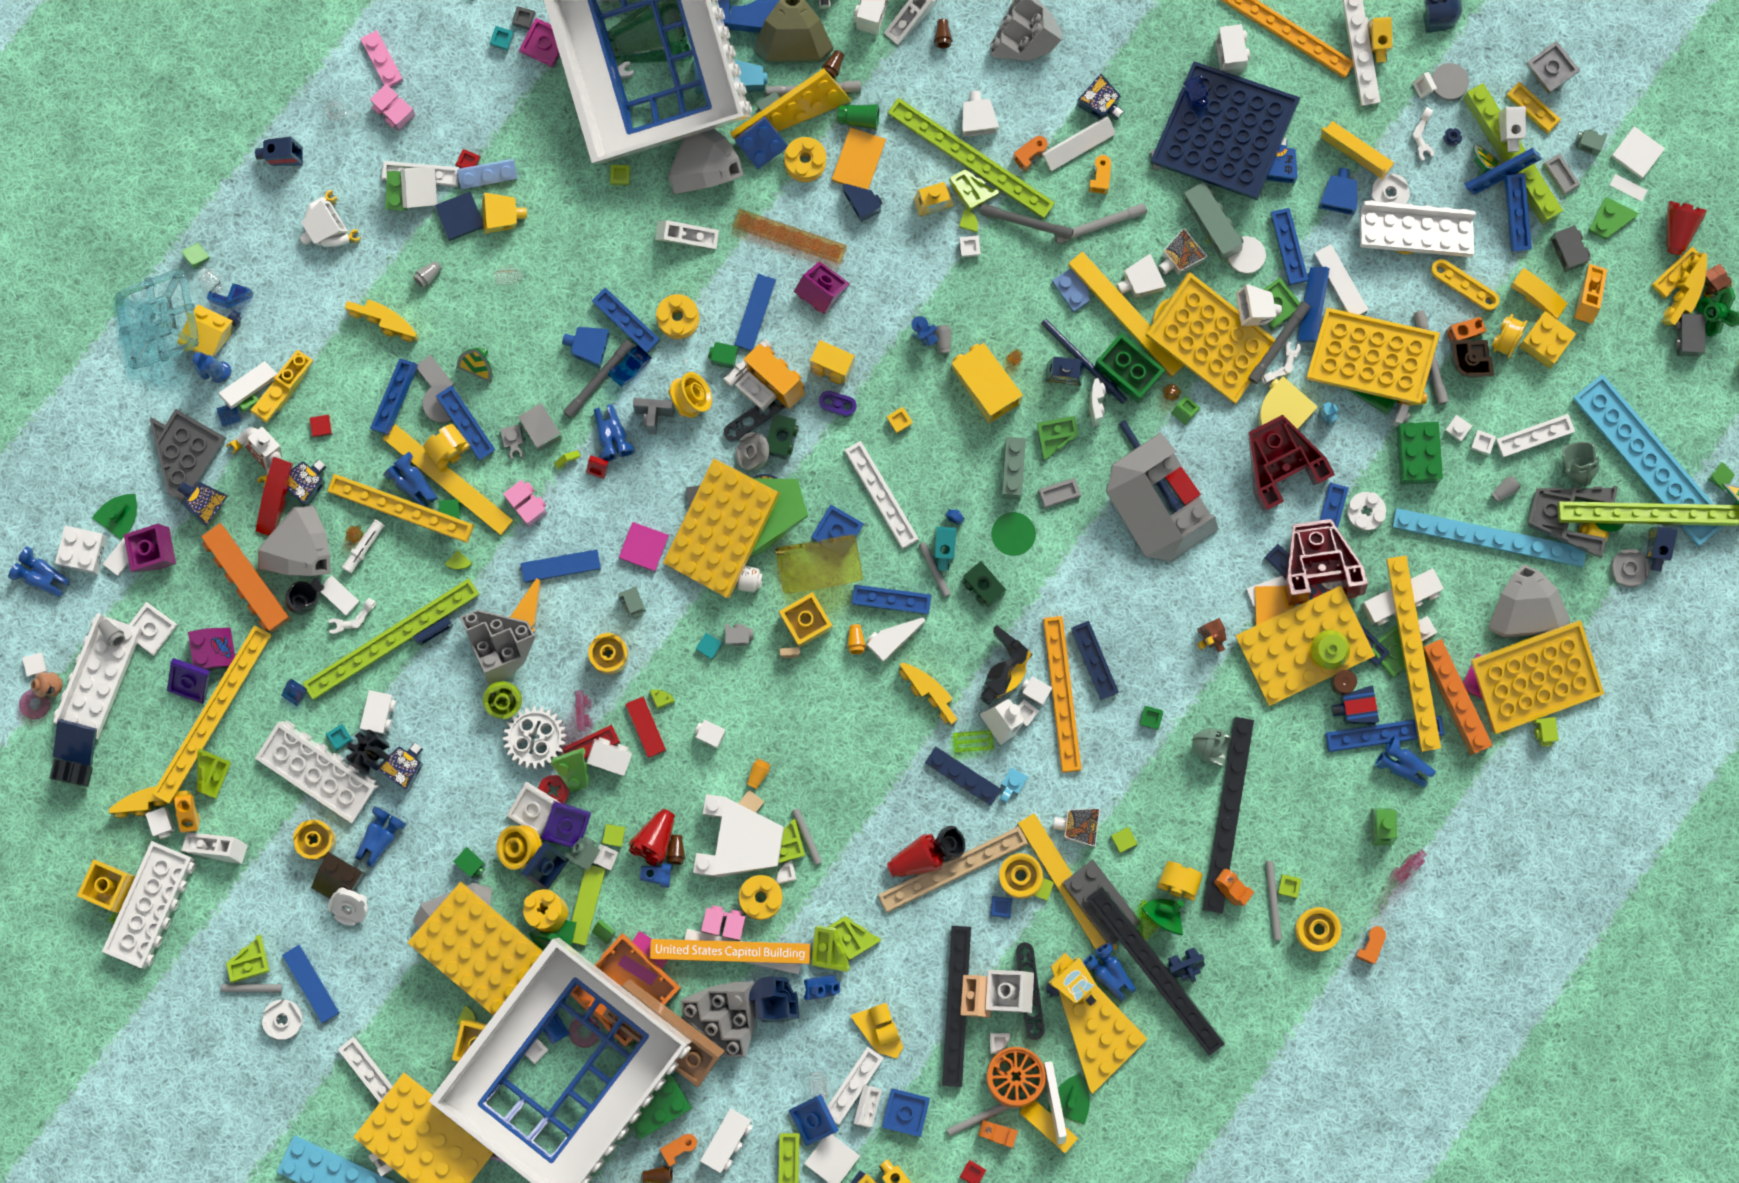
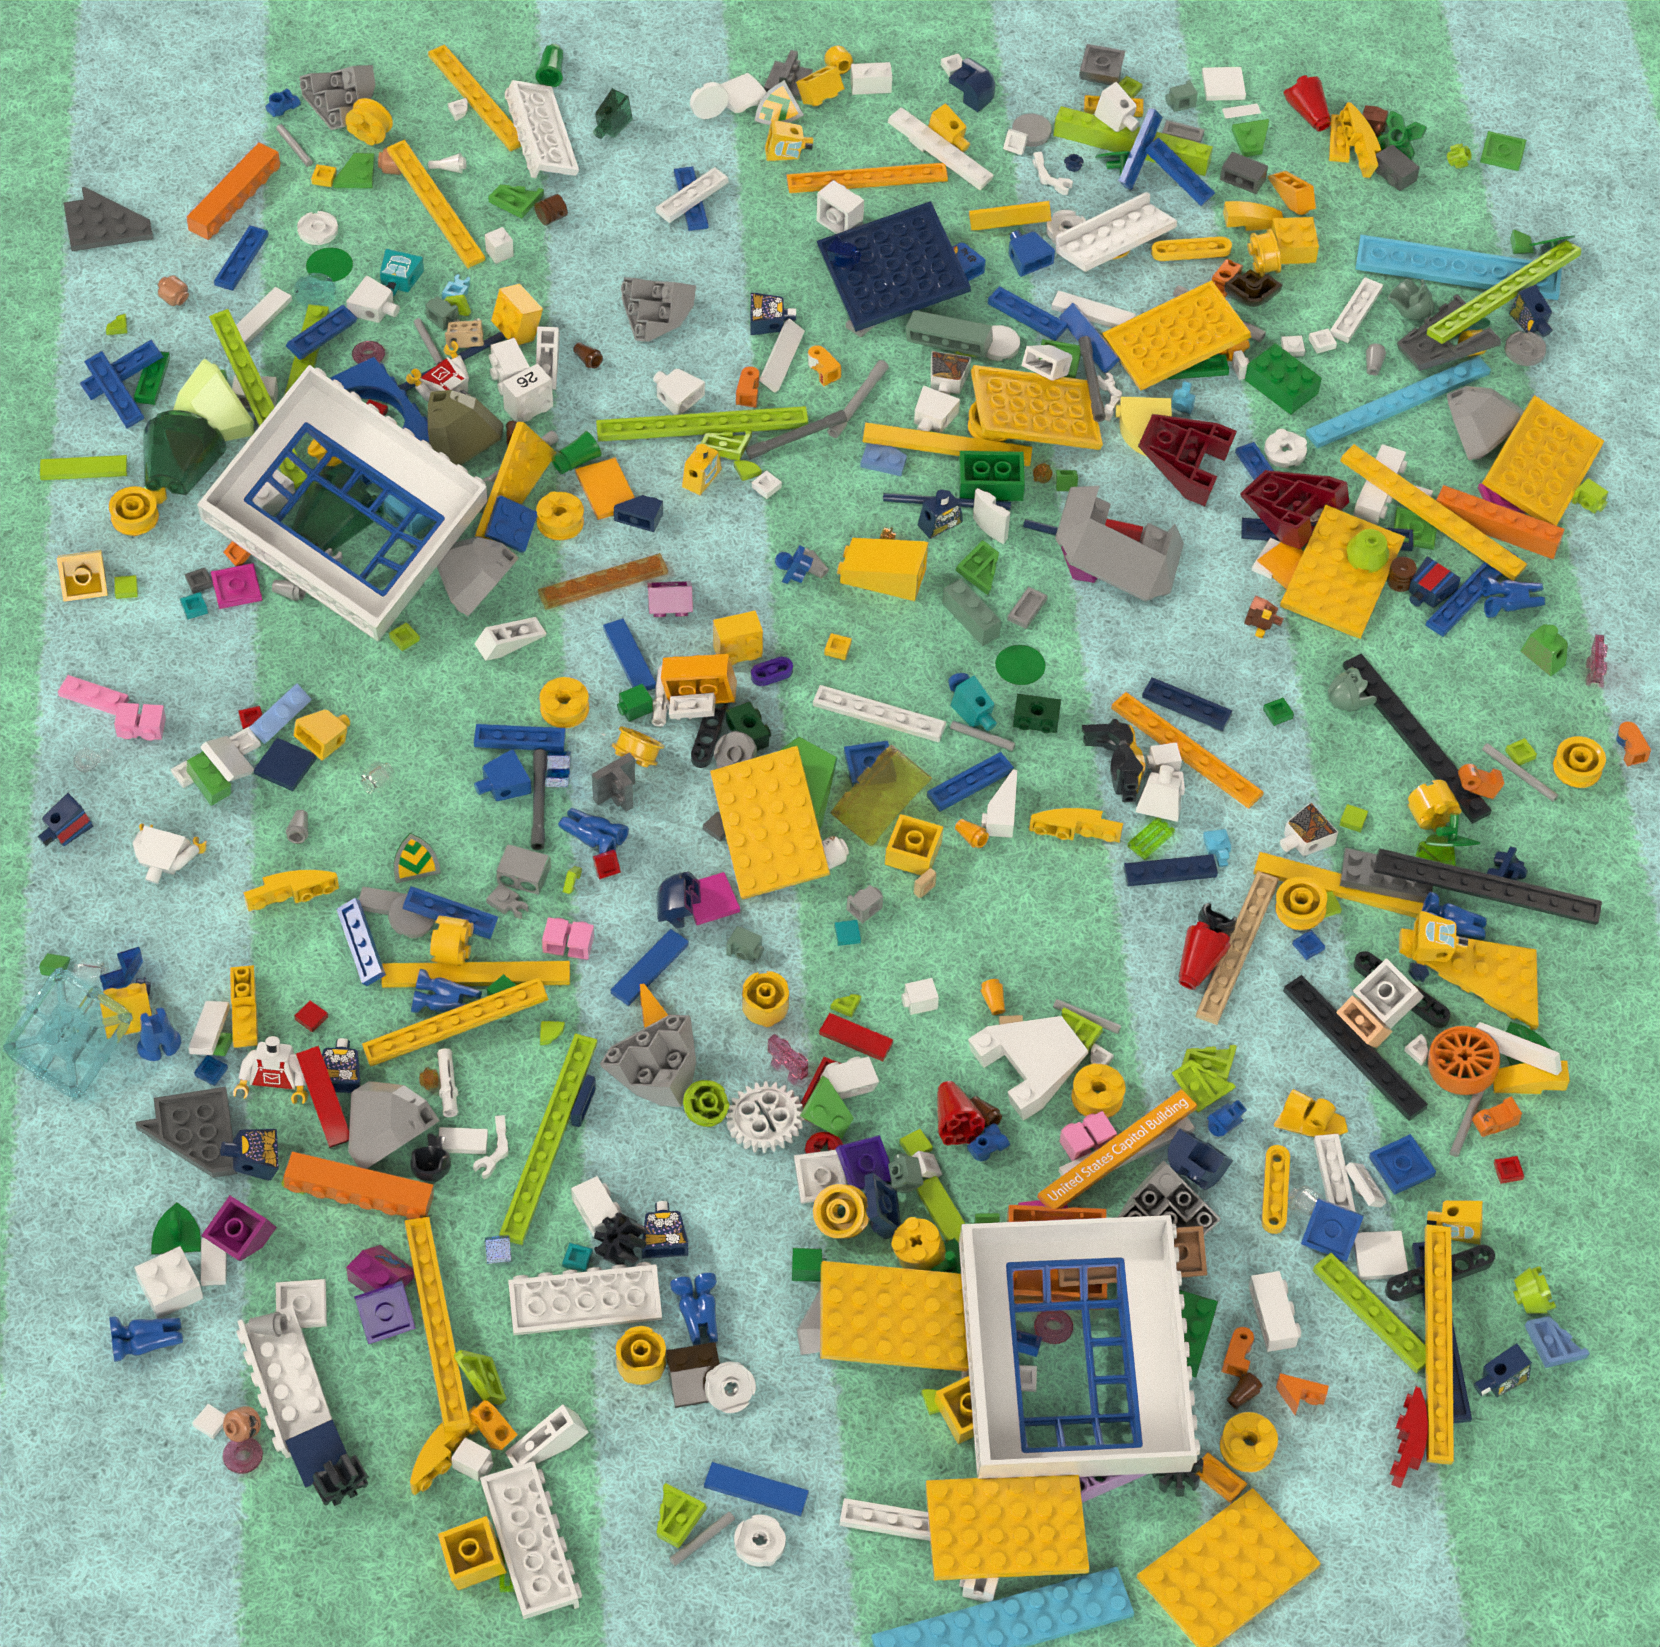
camera: 40 degrees left, 25 degrees down
(613, 532) = (676, 898): none -> dark blue brick
(808, 1060) = (1275, 1189): none -> yellow plate
(866, 40) = (527, 394): none -> white brick
(1561, 99) = (1130, 86): none -> lime tile

